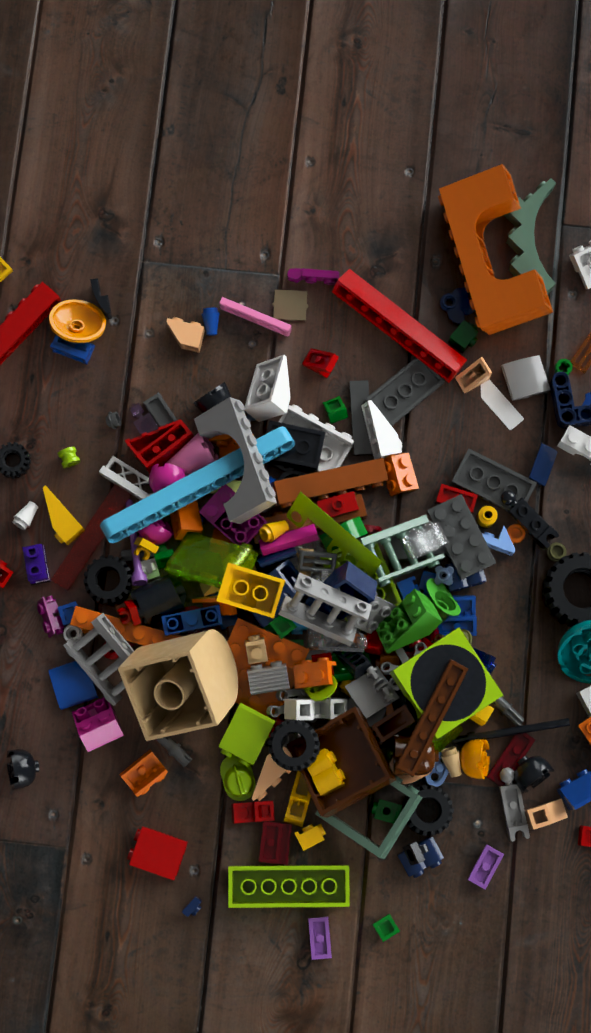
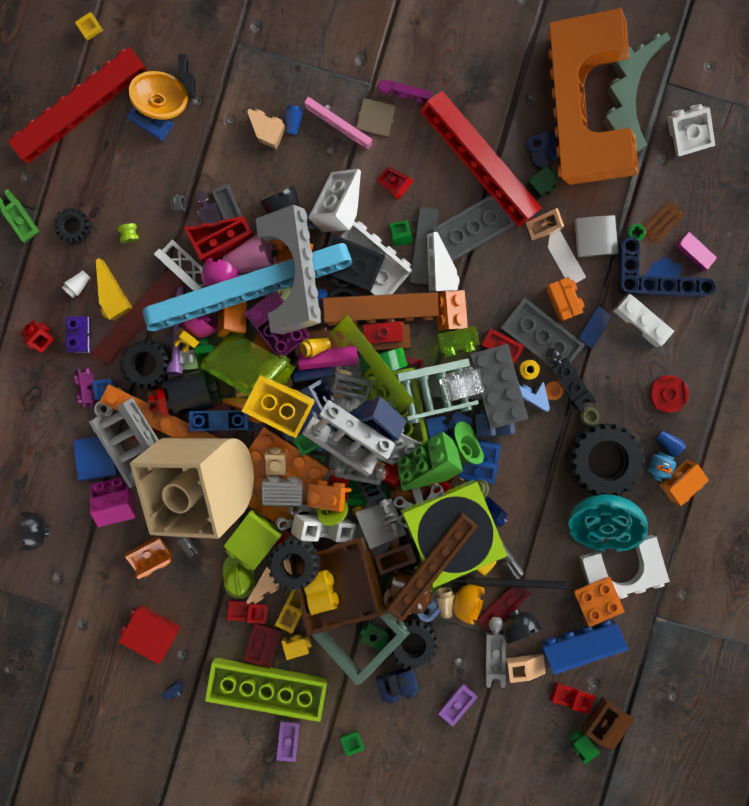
camera: 10 degrees right, 10 degrees up
(412, 500) = (457, 340): none -> clear neon green brick
(448, 580) = (477, 427): sand blue plate -> none
(508, 442) = (565, 299): none -> orange brick

